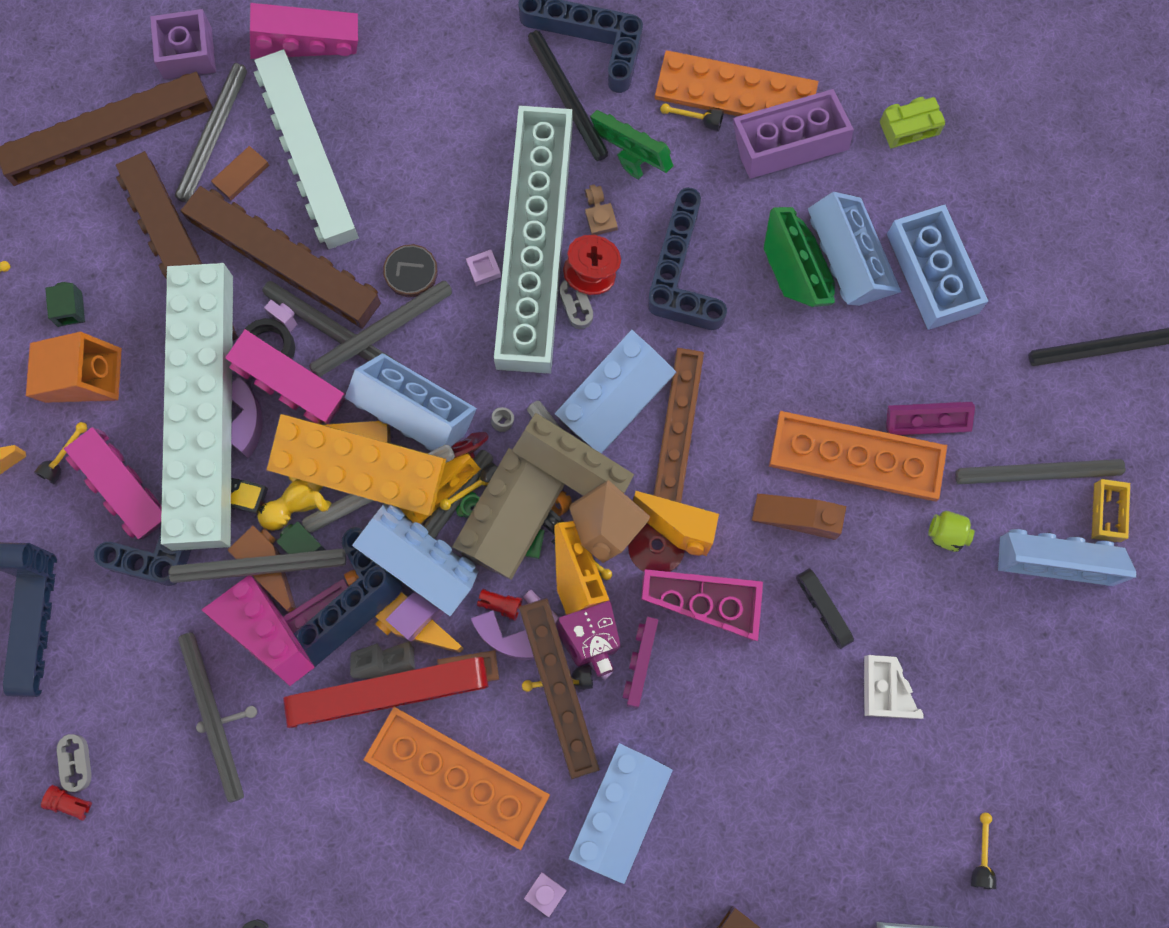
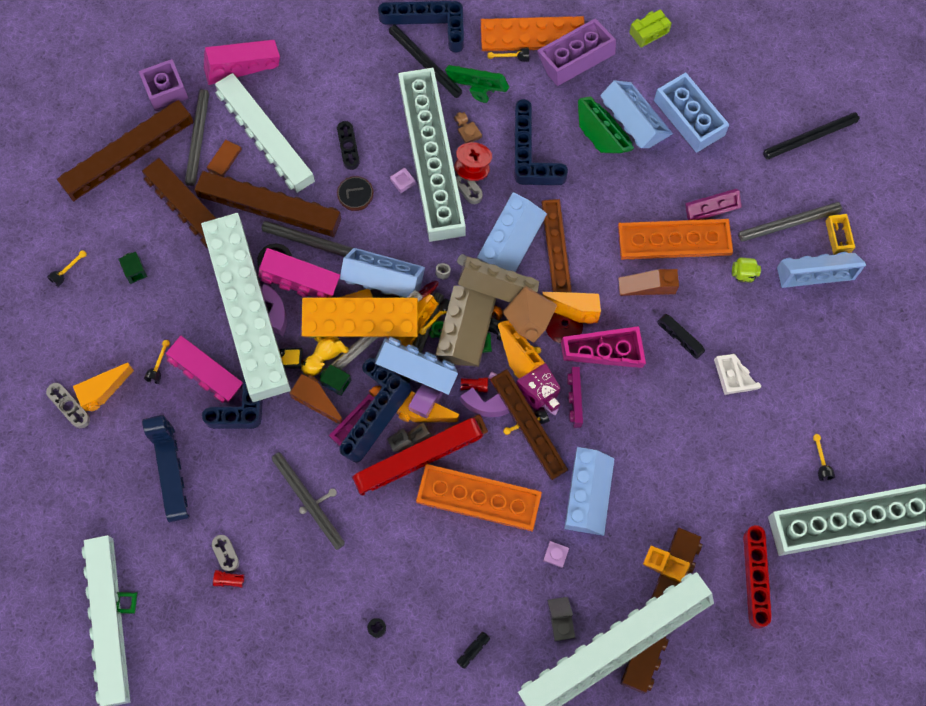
camera: 15 degrees left, 5 degrees down
(73, 369) = (151, 306): orange slope -> none
(257, 565) = (313, 396): dark grey axle -> none
(257, 624) = (323, 433): dark pink wedge -> none
(282, 314) = (279, 238): lavender plate -> none
(380, 329) = (349, 231): dark grey axle -> none
(414, 187) = (350, 138): none -> black beam

